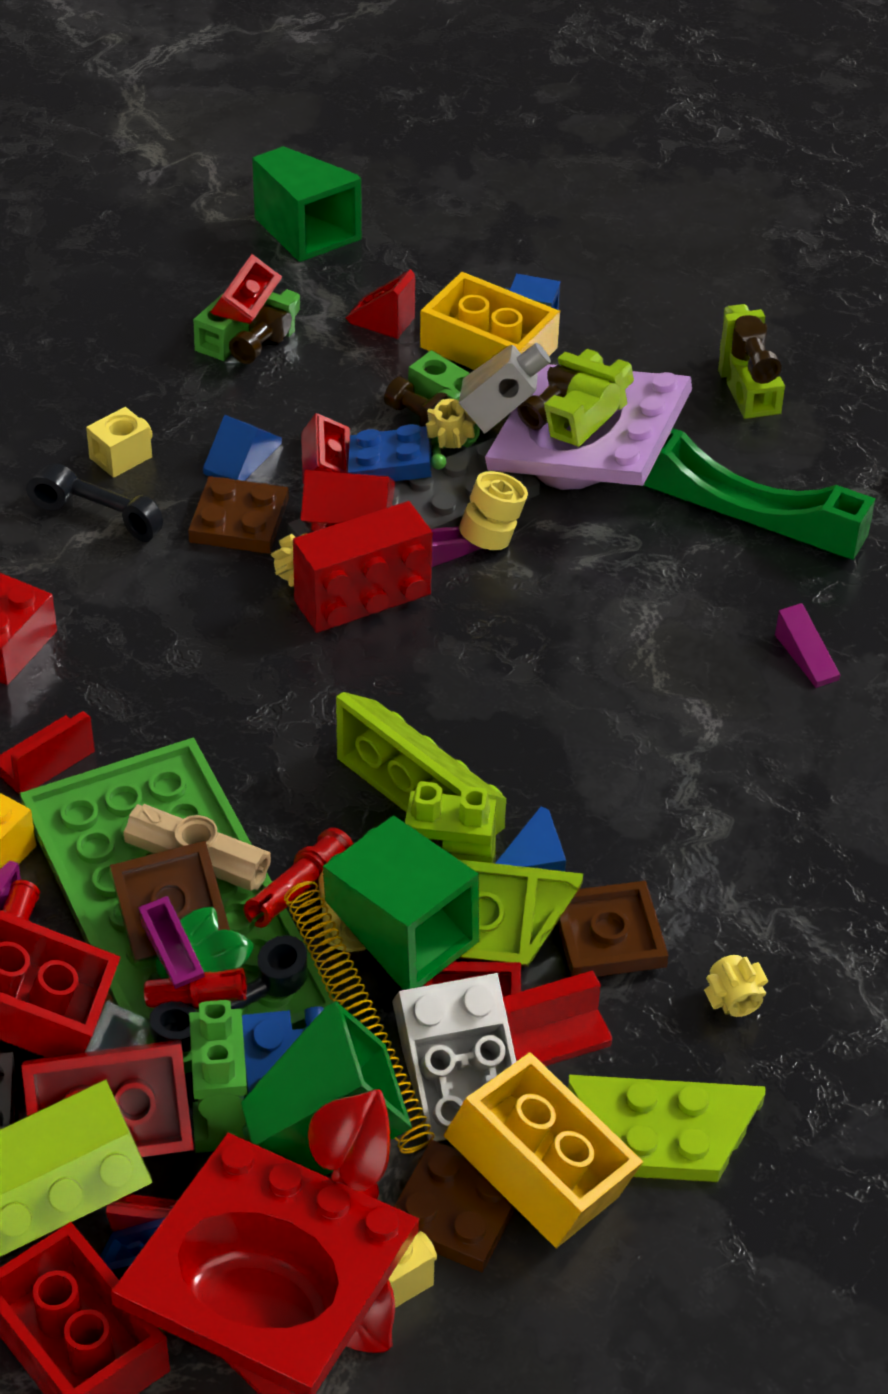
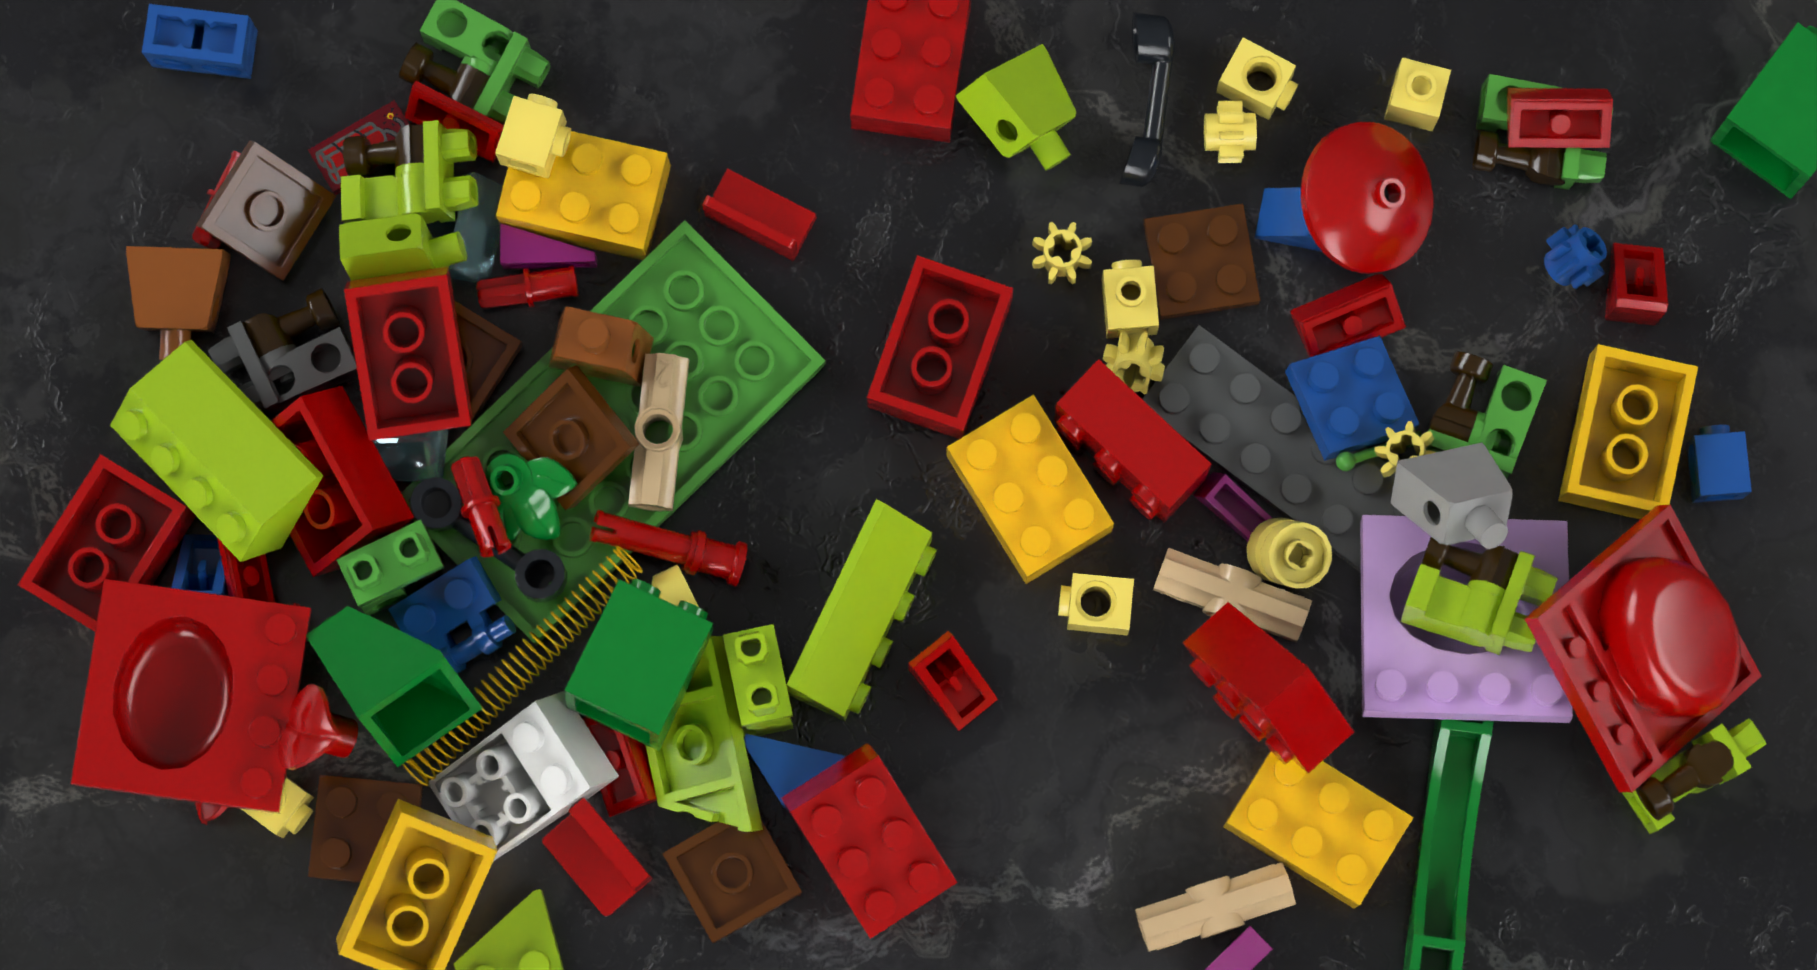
camera: 75 degrees right, 35 degrees up
(44, 557) = (1022, 107): none -> lime torso
(84, 857) = (601, 346): none -> dark orange torso
(151, 463) = (1230, 131): none -> light yellow gear
(170, 942) = (504, 465): magenta piece -> none
(184, 365) = (1417, 94): none -> light yellow brick
(188, 578) = (1055, 265): none -> light yellow gear
(224, 660) = (939, 347): none -> red brick
(246, 399) = (1347, 200): none -> red dish
(246, 551) = (1129, 299): none -> light yellow brick
(343, 496) = (1231, 384): red slope -> none
(347, 324) = (1575, 256): none -> blue gear
(368, 645) = (1029, 489): none -> yellow brick
(481, 633) = (1119, 594): none -> light yellow brick
(497, 738) = (952, 681): none -> red slope
(508, 561) = (1213, 586): none -> tan piece
(598, 522) = (1267, 689): none -> red brick
(620, 809) = (869, 840): none -> red brick
(656, 326) = (1644, 647): none -> red piece
(708, 558) = (1319, 826): none -> yellow brick
(754, 636) = (1215, 907): none -> tan piece

